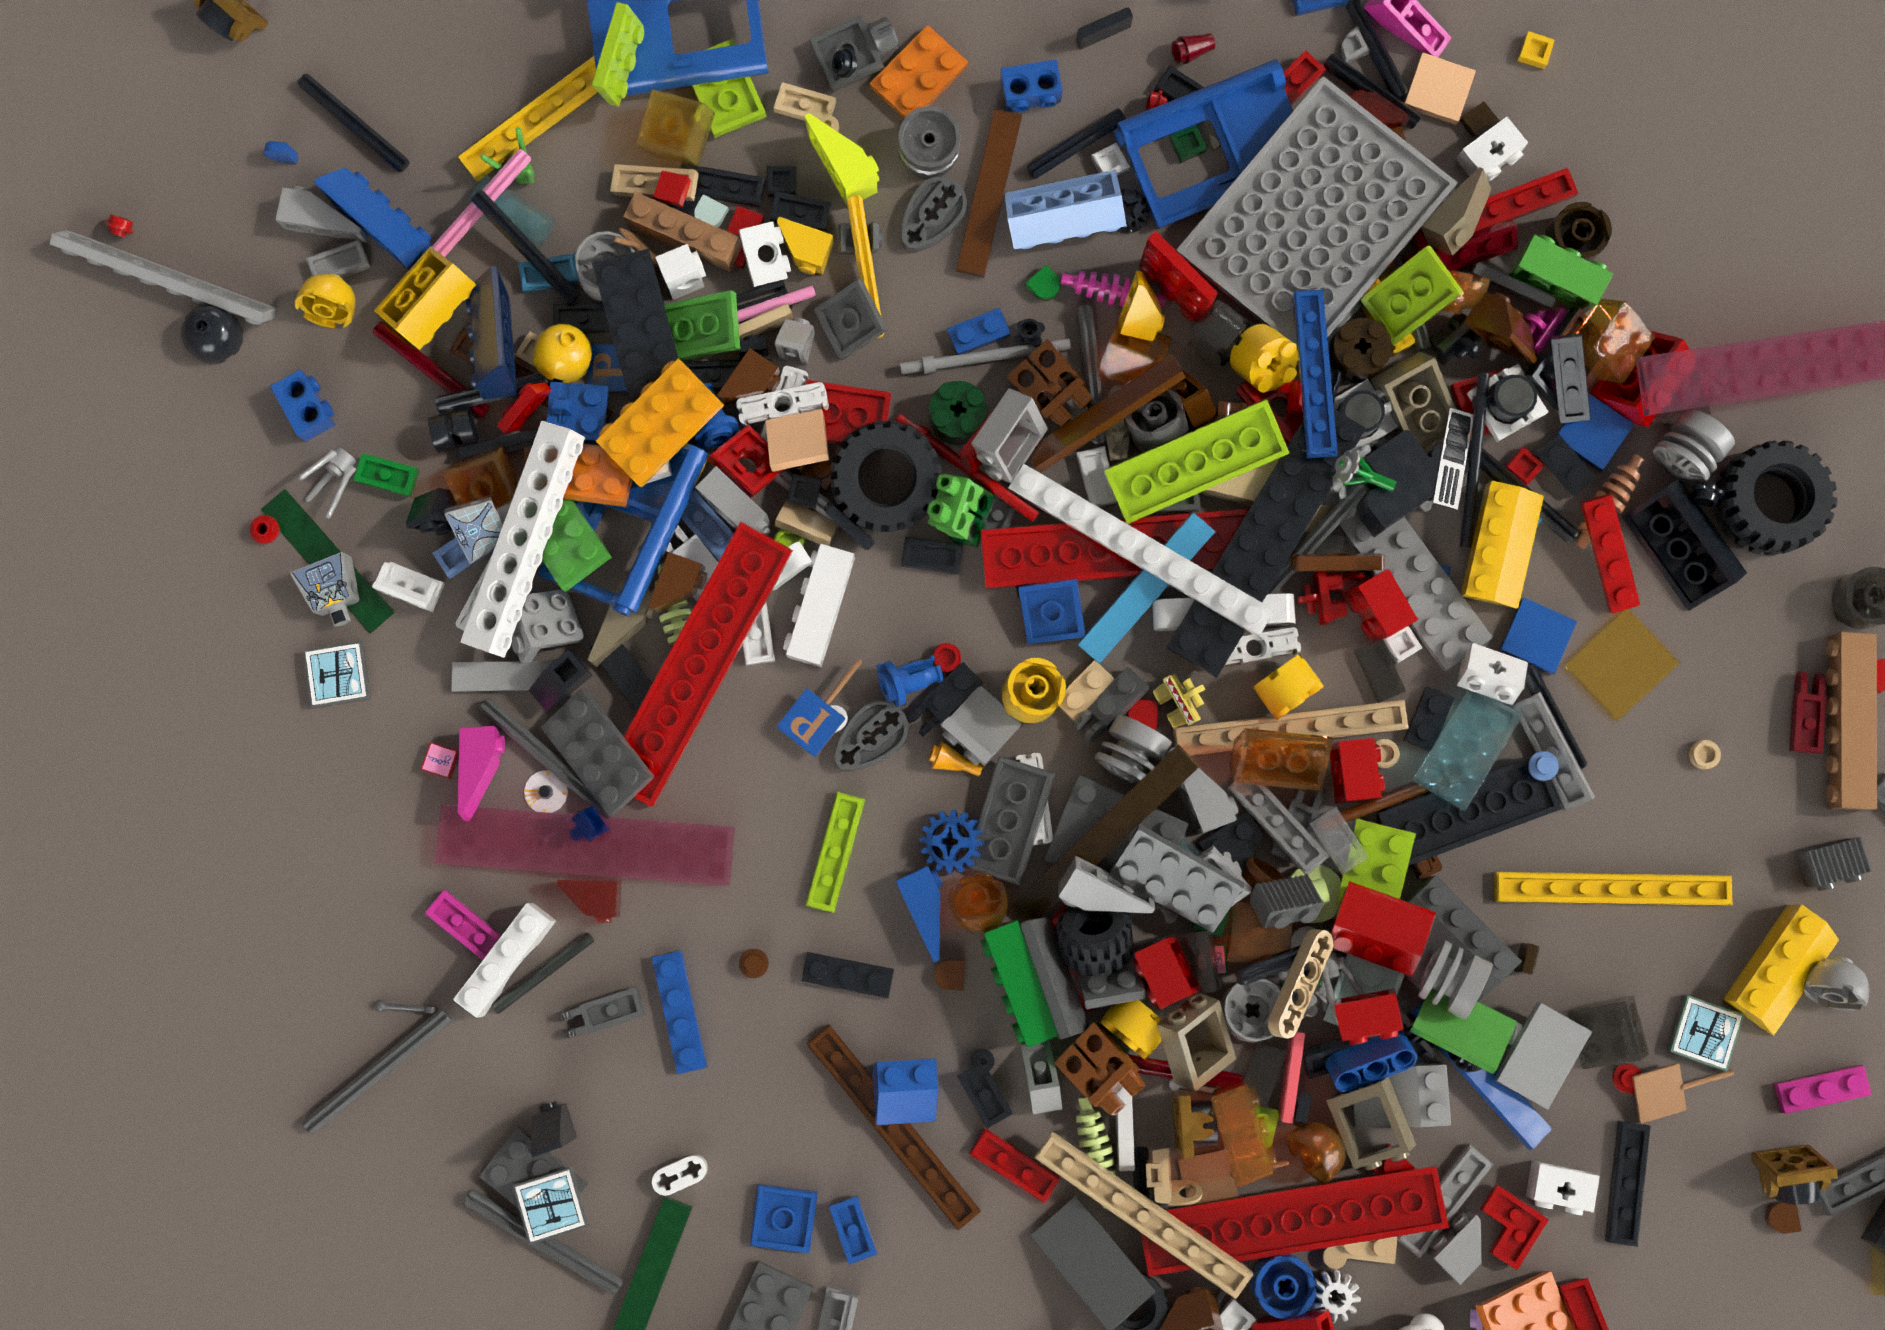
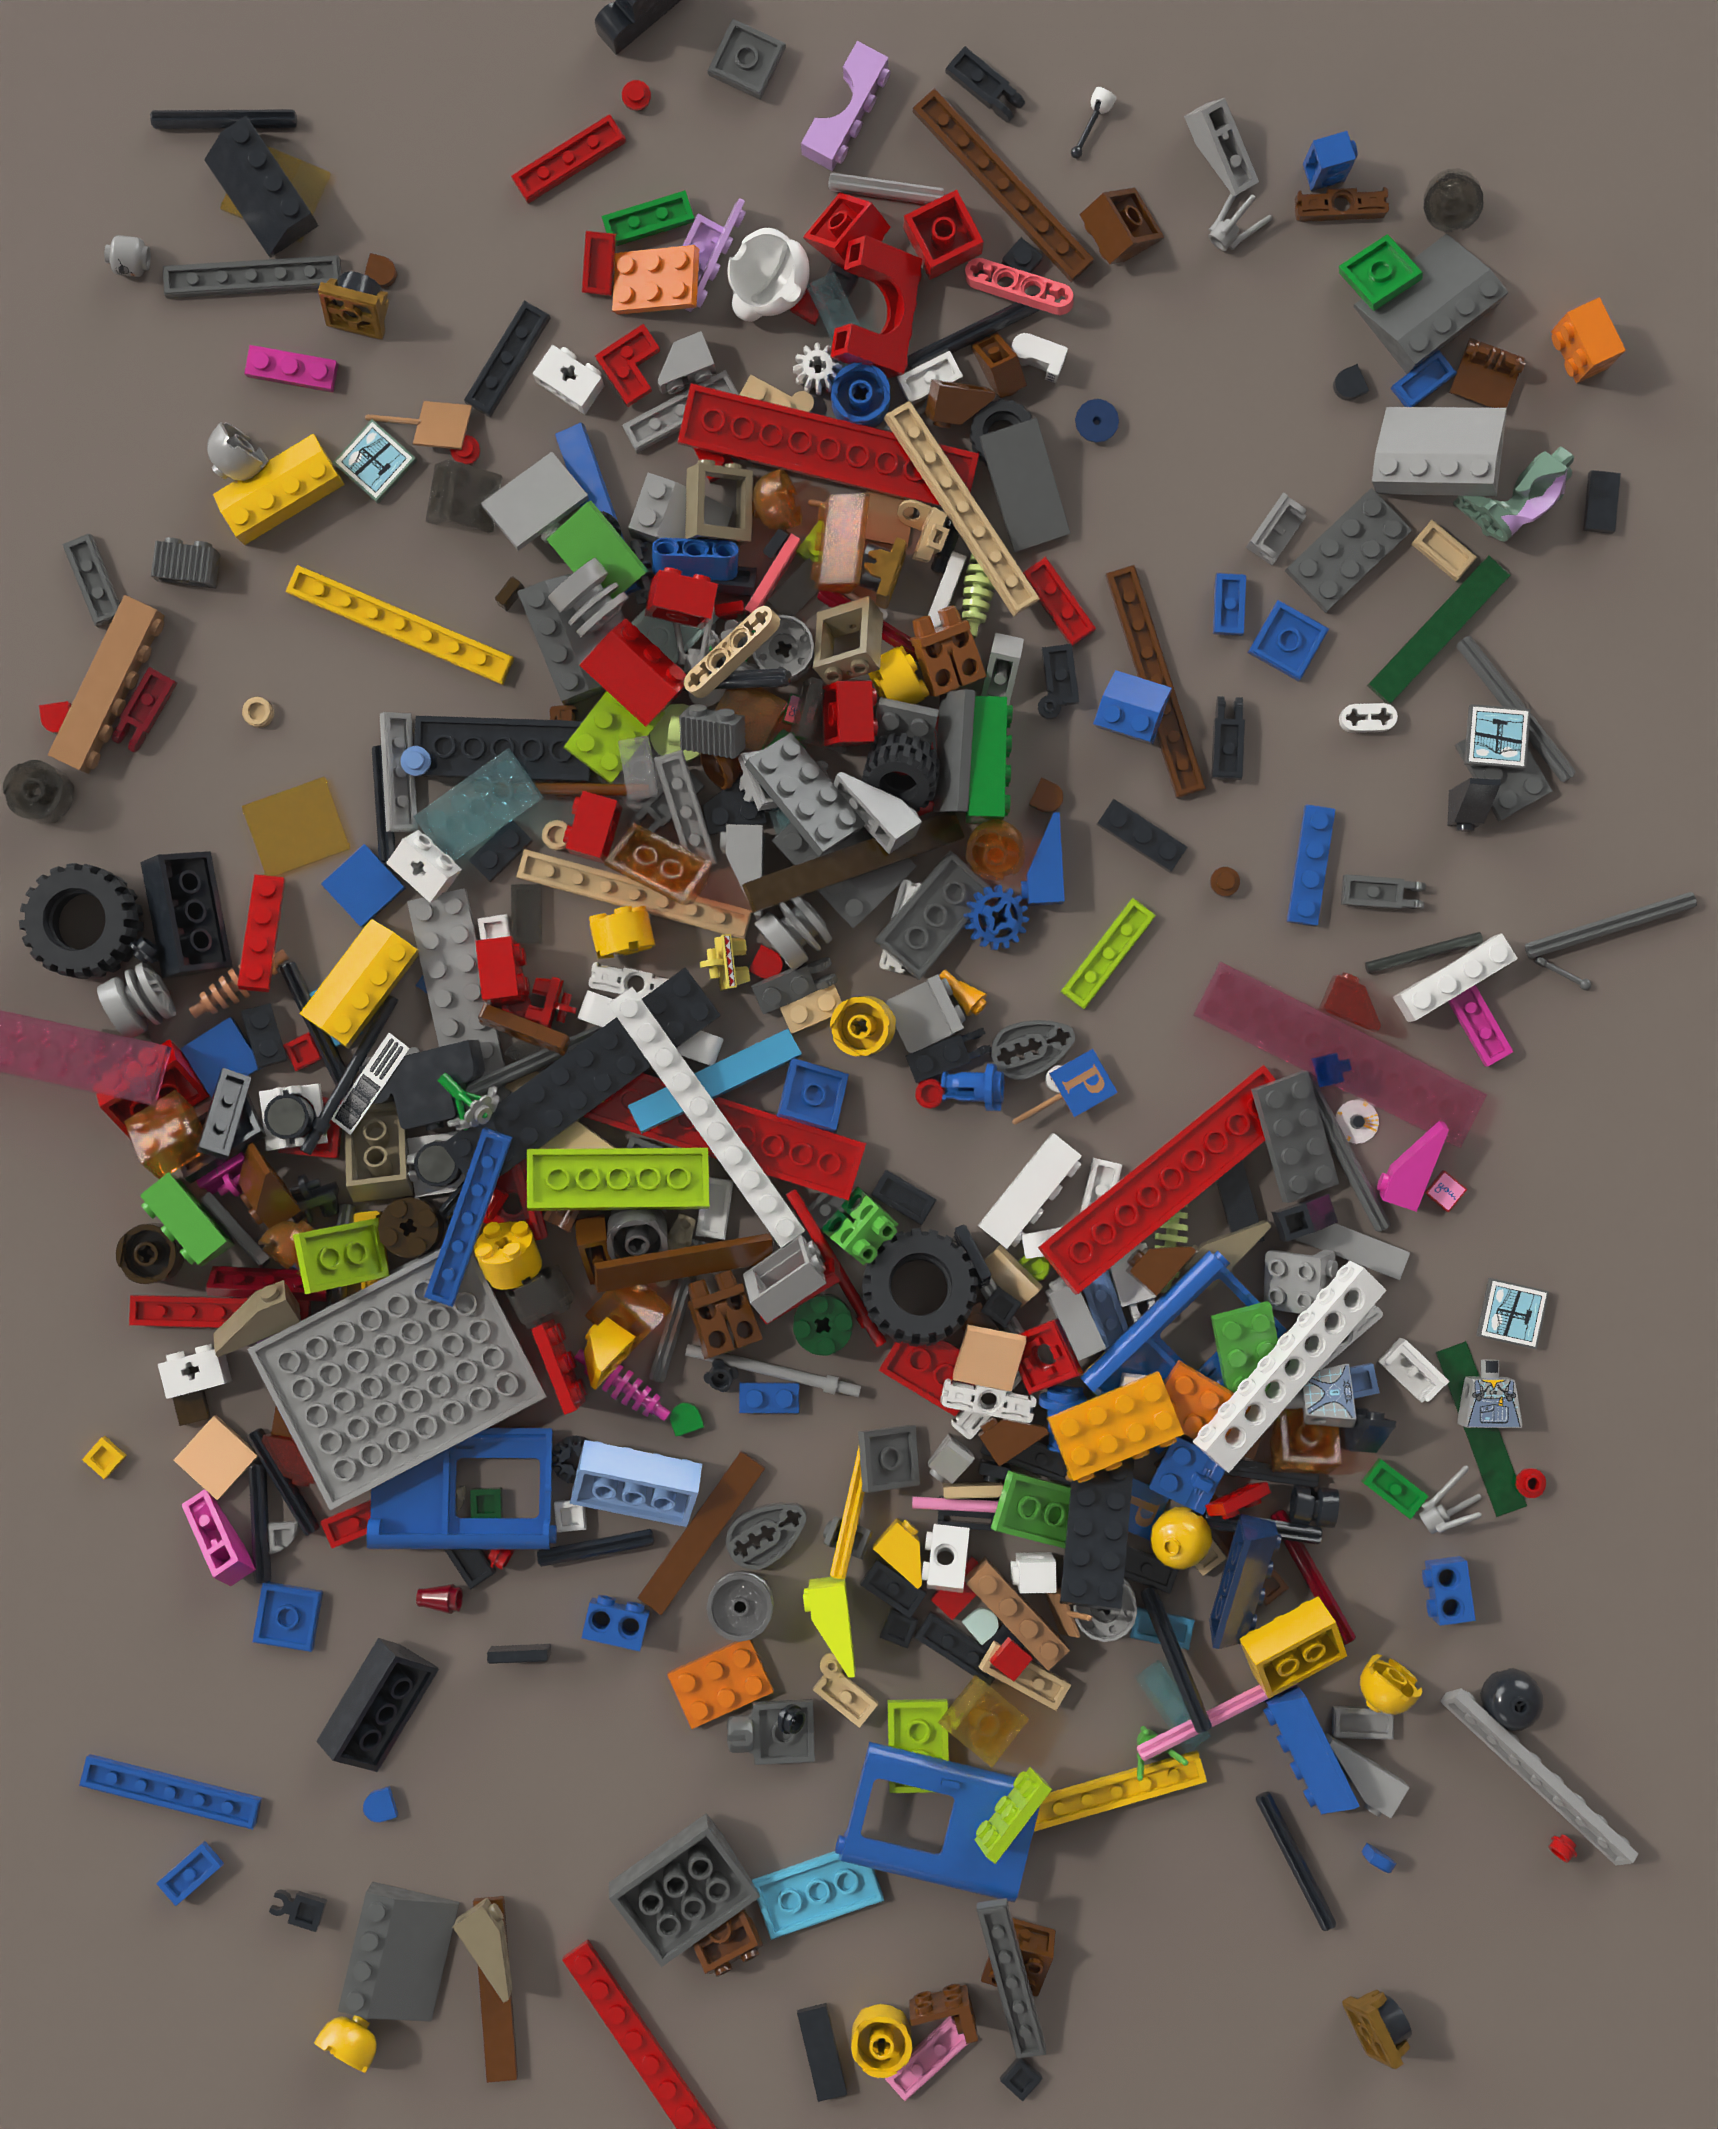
camera: 155 degrees left, 5 degrees up
(802, 1096) = (1228, 741): none -> black hinge
(1318, 1026) = (729, 610): none -> red tile

